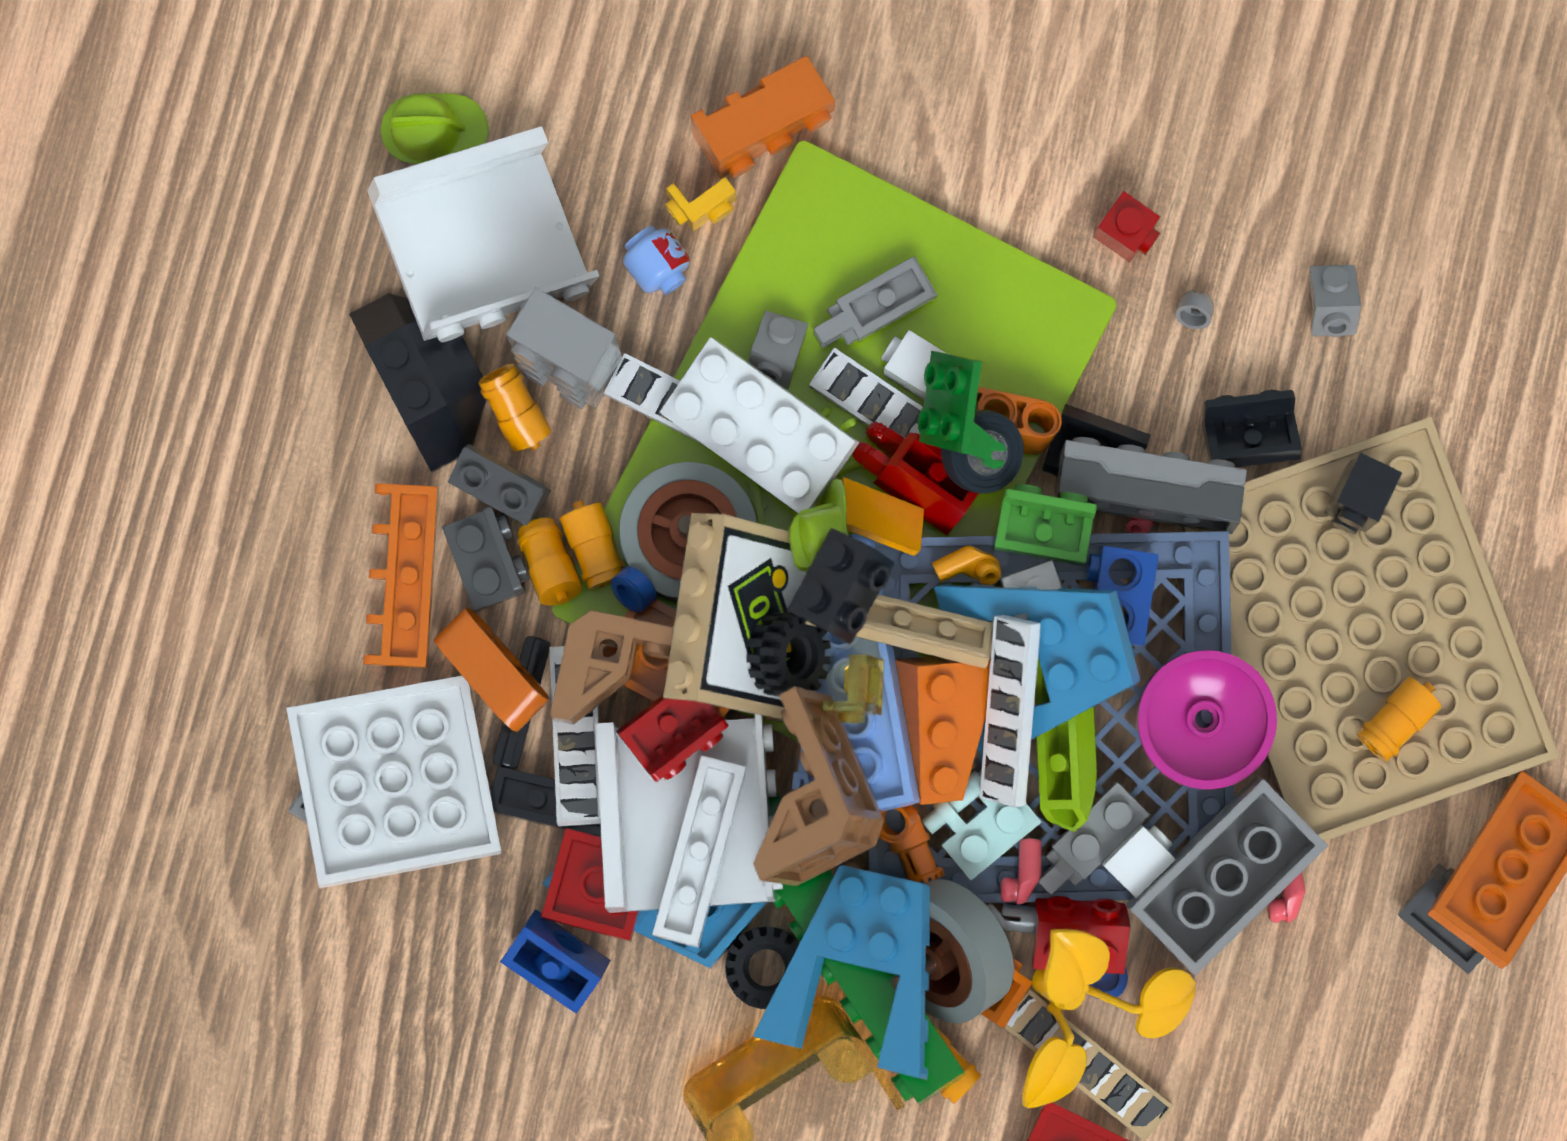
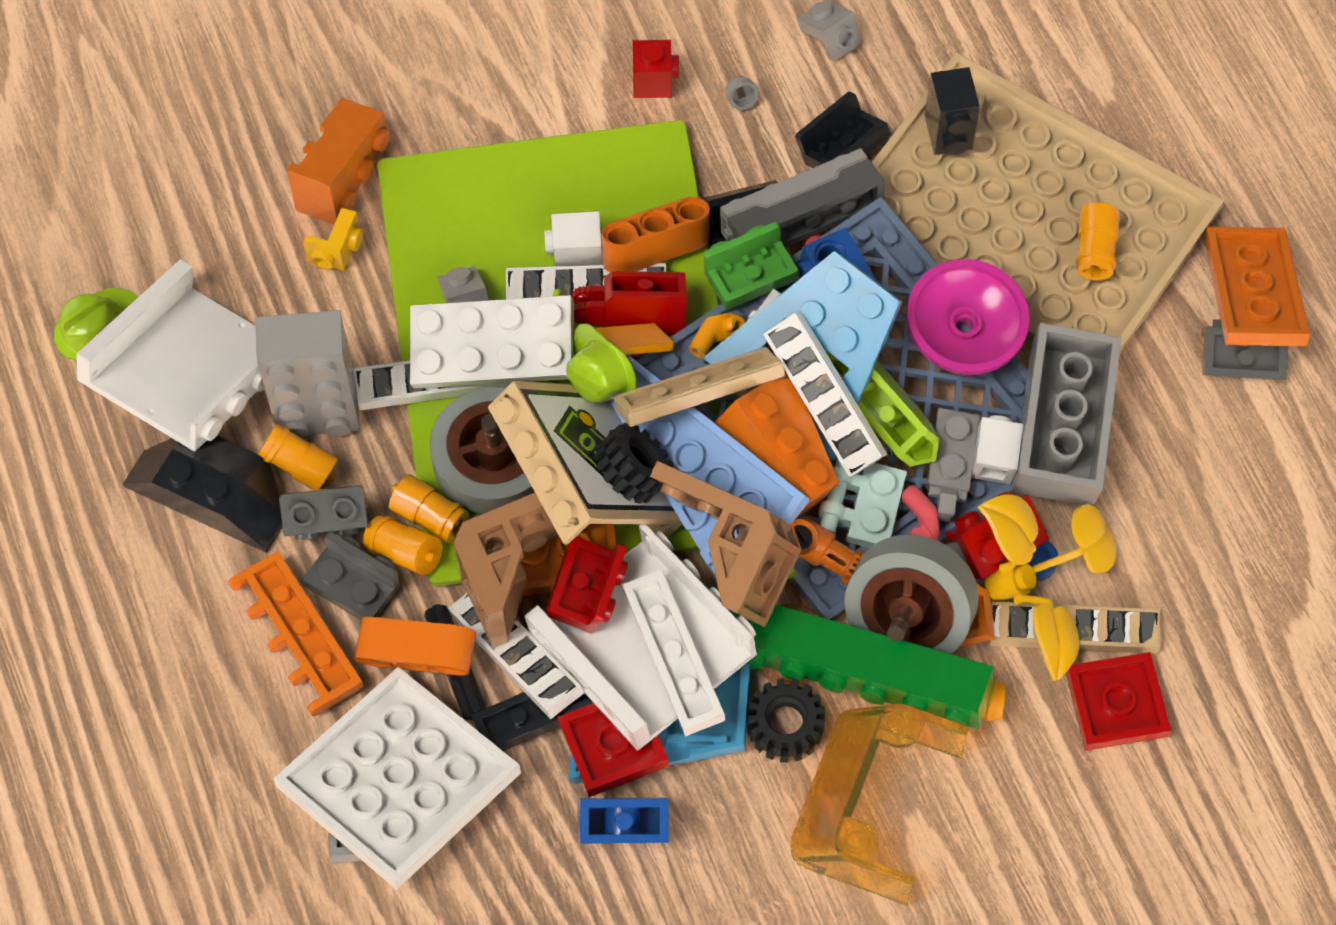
camera: 35 degrees left, 20 degrees down
(633, 589) = (479, 502): blue tile -> none
(656, 260) = (331, 292): light blue head -> none
(841, 585) = (636, 374): black bracket -> none
(864, 688) = (707, 447): clear yellow bracket -> none
(872, 925) = (840, 609): dark azure wing -> none
(876, 304) = (514, 223): light grey hinge -> none
(978, 446) = (630, 235): green plate -> none
(1289, 904) = (1124, 420): coral arm -> none

